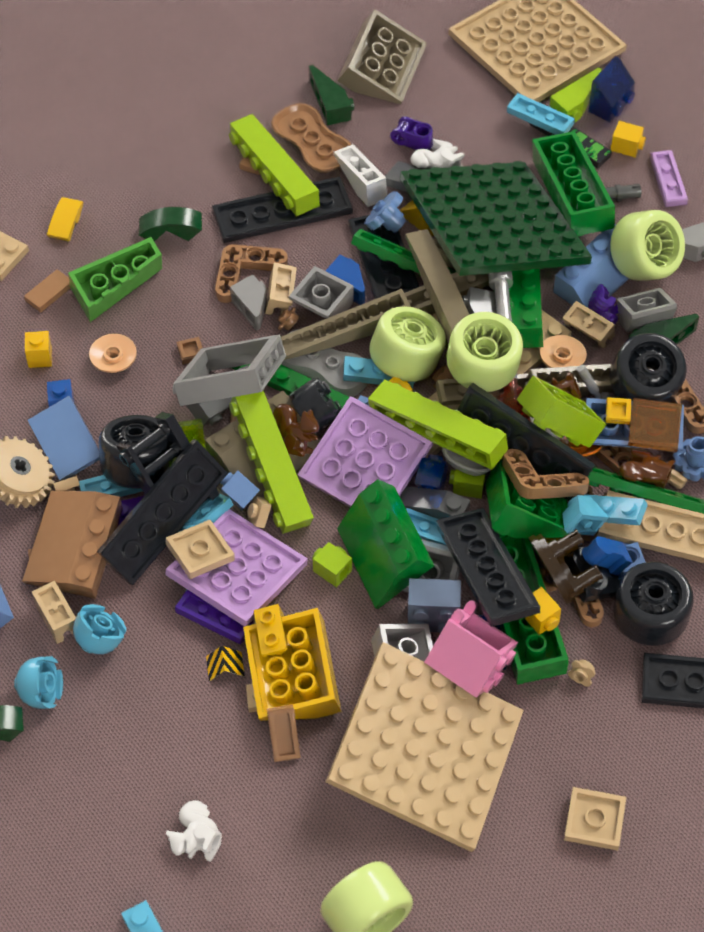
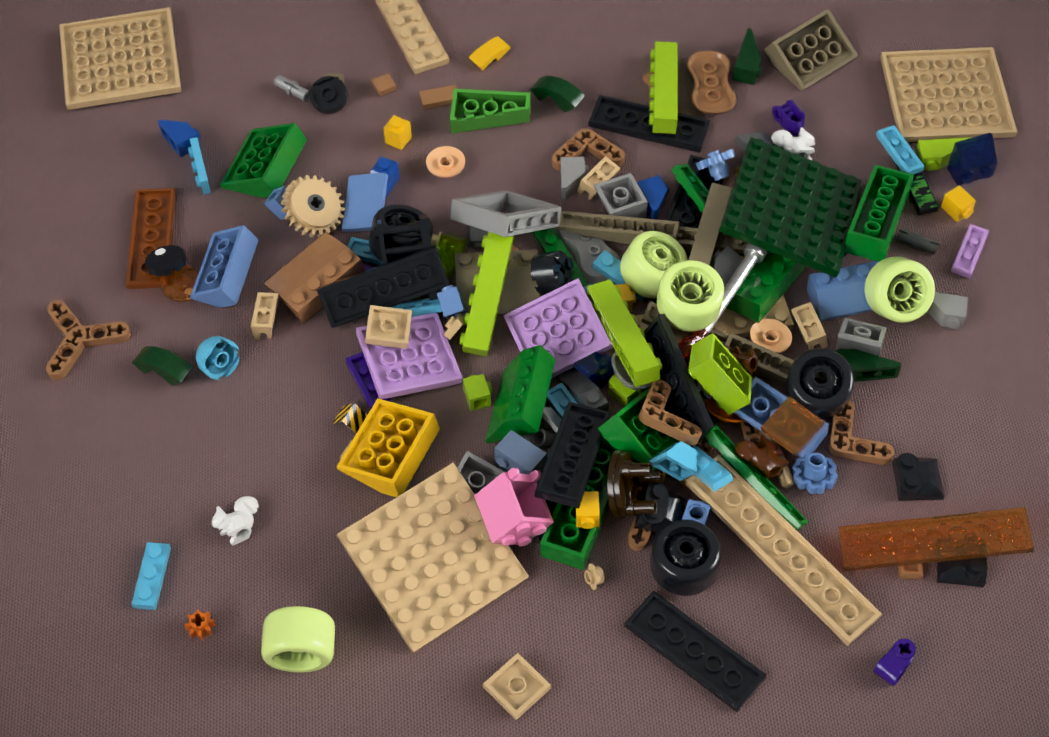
camera: 35 degrees right, 0 degrees up
(66, 485) = (341, 235): tan plate -> none
(97, 630) = (281, 342): medium azure cylinder -> none
(188, 349) = (502, 185): medium nougat tile -> none
(270, 630) = (392, 410): yellow bracket -> none
(283, 733) = (345, 487): medium nougat tile -> none
(288, 319) = (587, 202): medium nougat plate -> none
(294, 433) = (521, 281): reddish brown animal -> none
(362, 174) = (724, 125): white slope -> none
(590, 383) = (766, 354): light grey piece -> none
(603, 304) = (832, 317): dark purple hair -> none
(607, 554) = (674, 498): blue leg -> none
(618, 411) = (771, 399): yellow tile -> none

